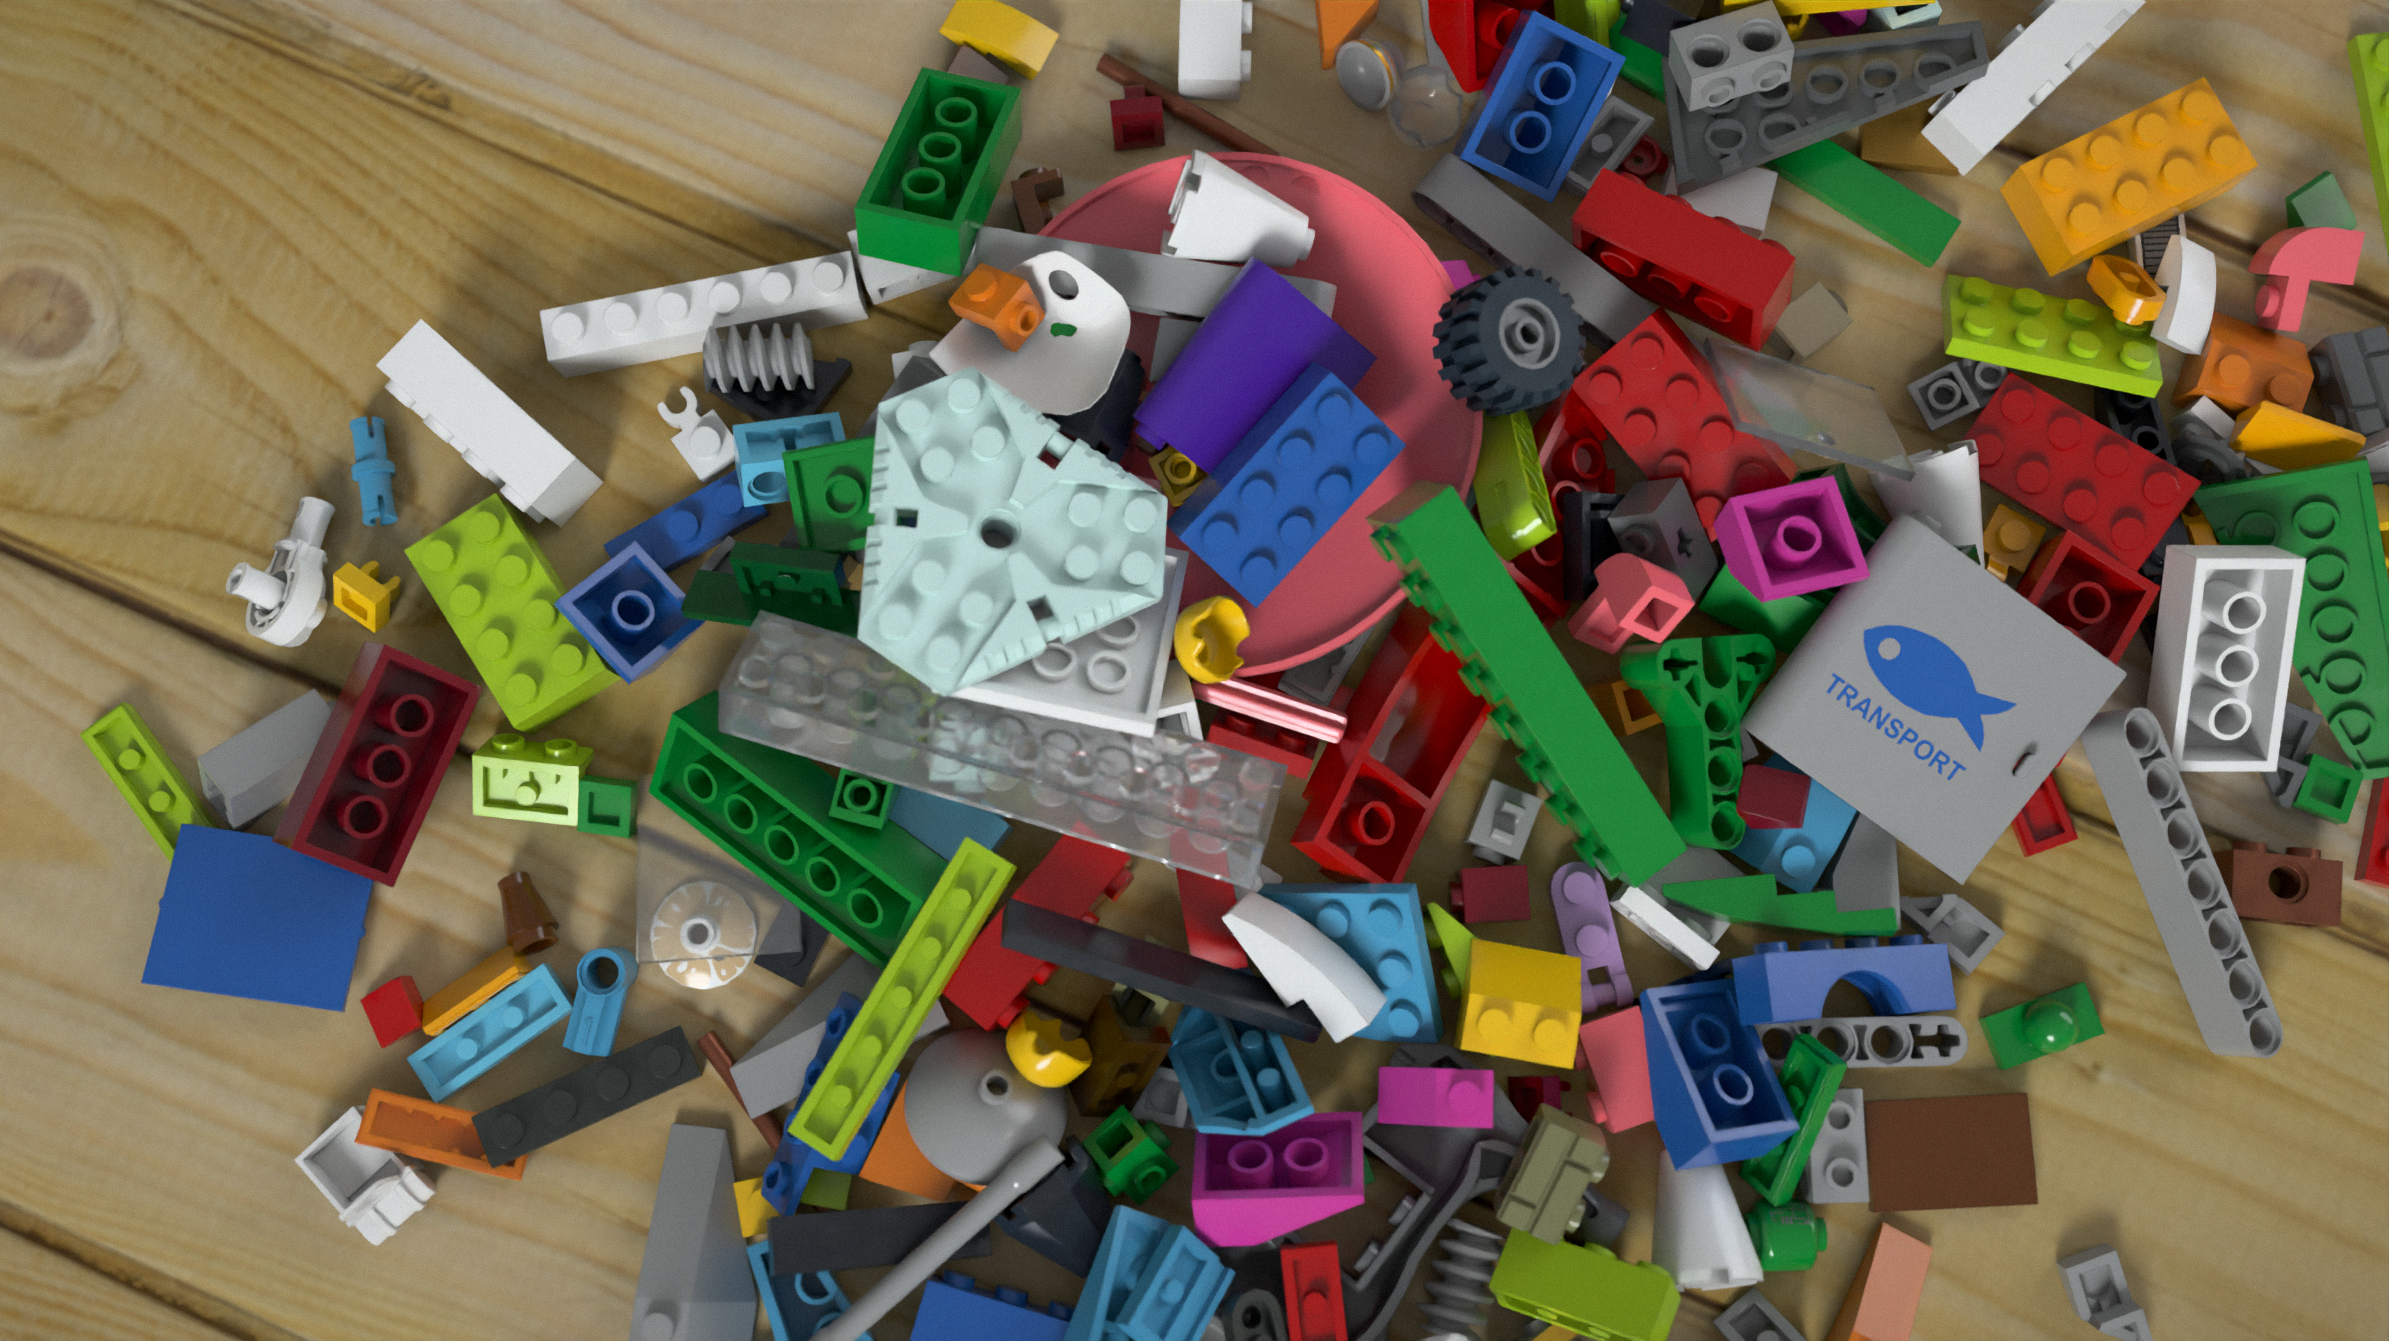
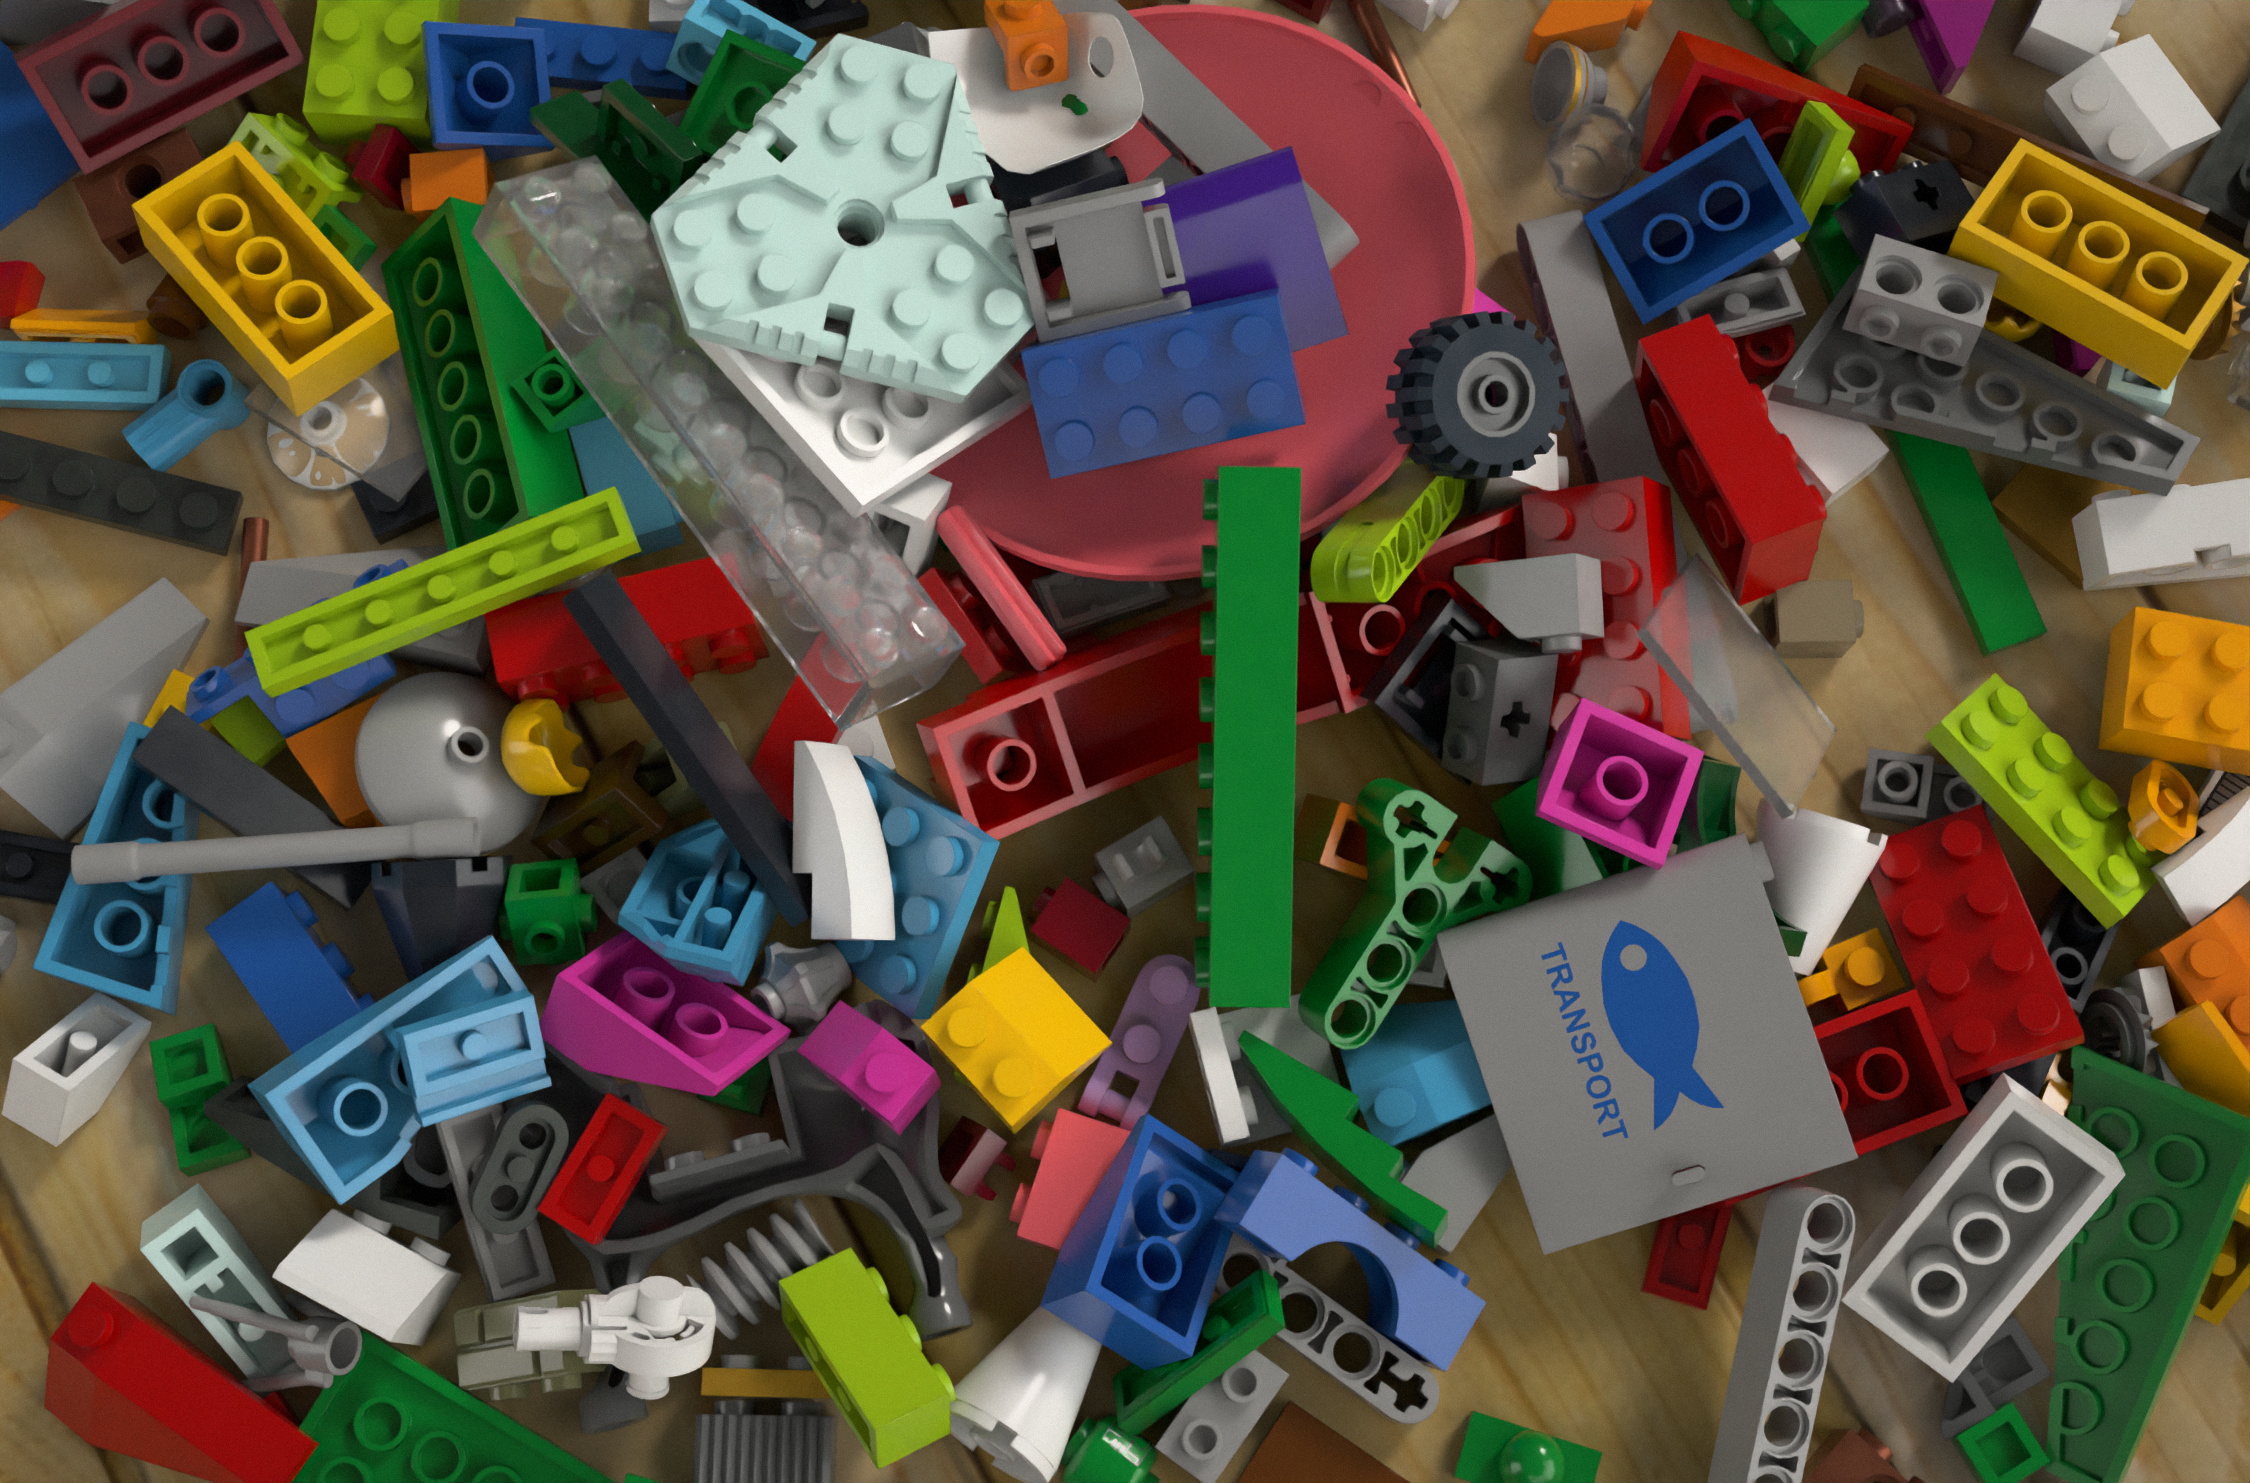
camera: 35 degrees right, 5 degrees down
(472, 848) = (119, 184): none -> copper brick
(586, 865) = (267, 277): none -> yellow brick
(597, 720) = (382, 164): none -> dark red tile
(652, 701) = (442, 174): none -> orange brick
(1190, 424) = (1111, 258): none -> light grey container
(1209, 637) = (987, 478): yellow hair -> none
(1231, 219) = (1305, 101): white cone -> none
(1339, 1075) = (800, 983): none -> light grey rock
(1551, 1175) = (917, 1216): olive brick -> none
(1630, 600) = (1413, 732): coral brick -> none
(1643, 449) = (1541, 598): none -> light grey slope
(1772, 798) = (1415, 1027): dark red slope -> none
(1952, 922) = (1516, 1307): light grey slope -> none

